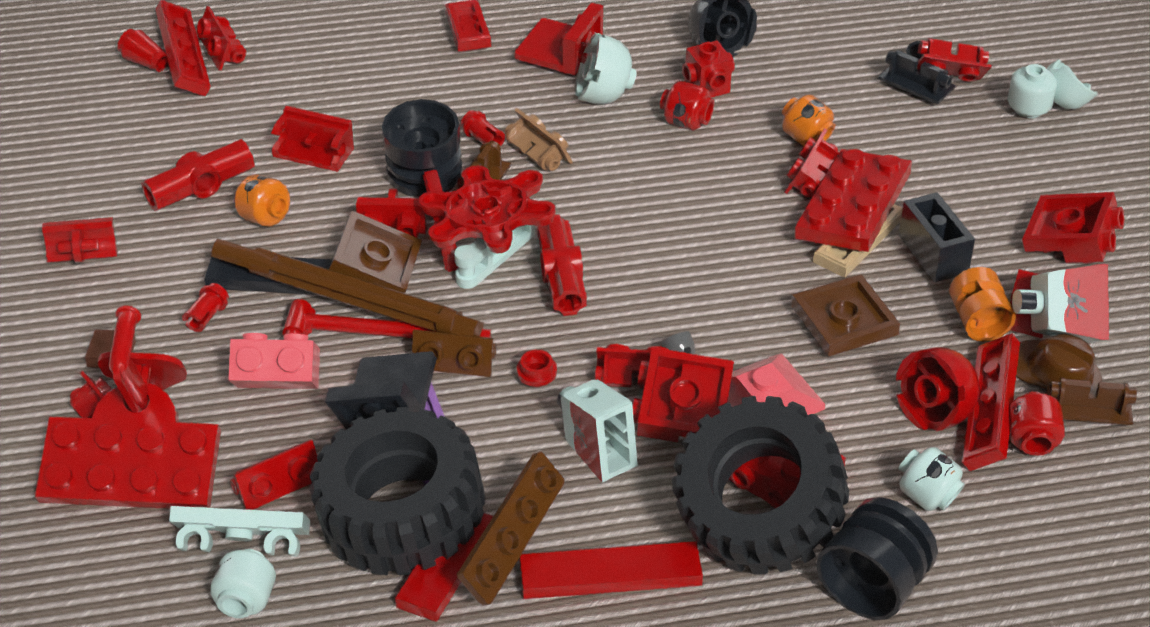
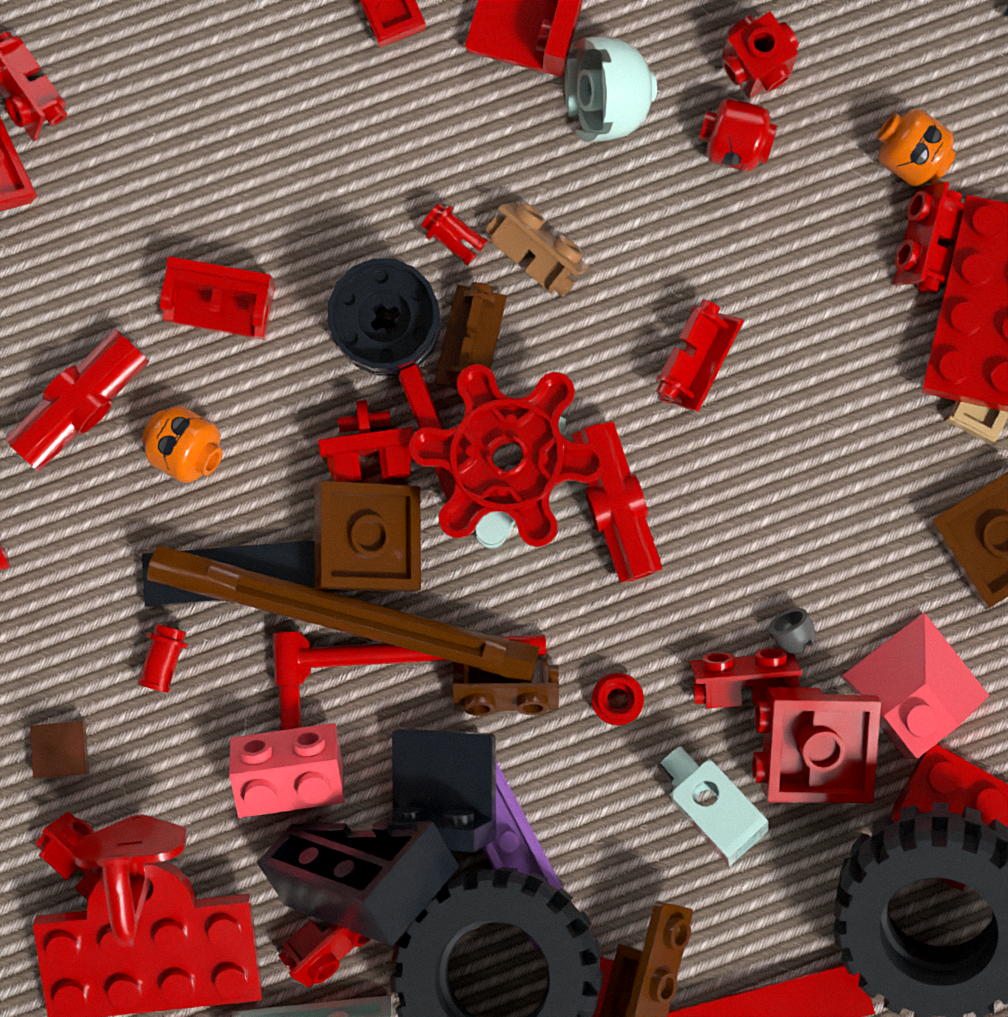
camera: 10 degrees left, 40 degrees up
(308, 404) = (359, 878): none -> black wedge
(627, 207) = (692, 371): none -> red hinge

